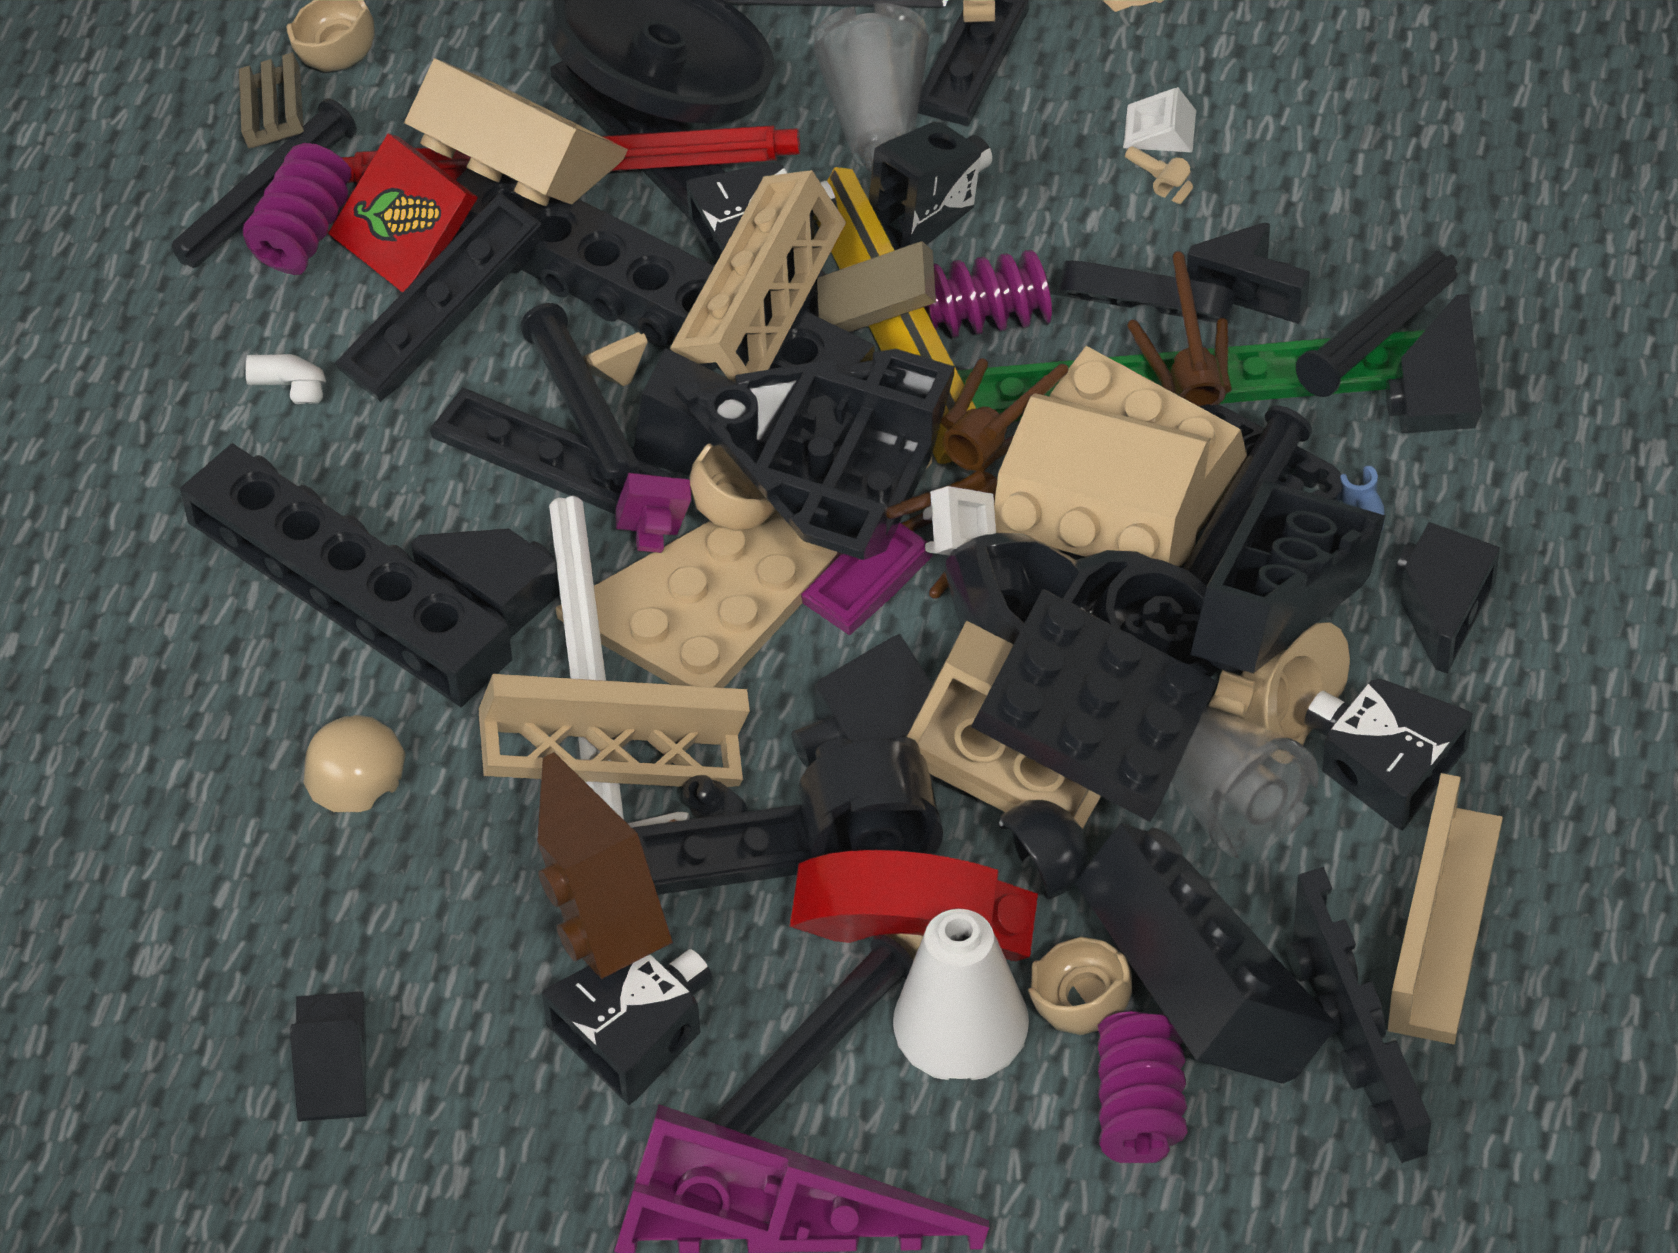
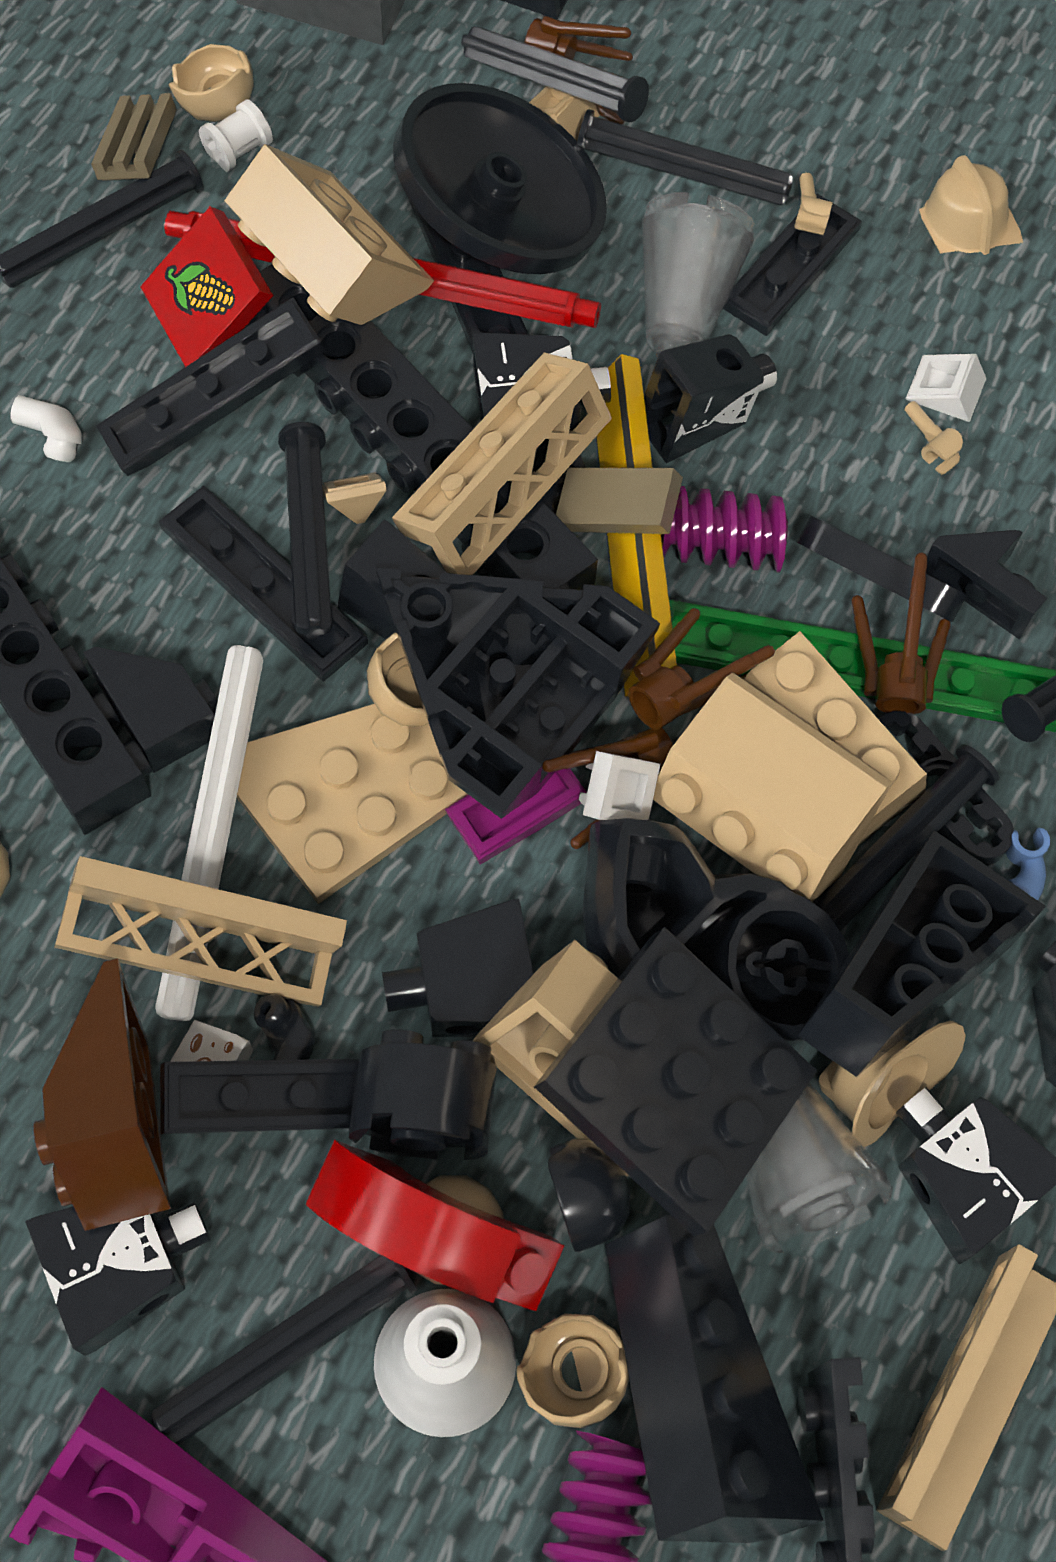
camera: 10 degrees right, 15 degrees up
(297, 208) = (112, 253): magenta piece -> none
(373, 74) = (236, 135): none -> white bush
(652, 508) = (329, 679): magenta tile -> none
(1233, 694) = (829, 1082): tan hand -> none

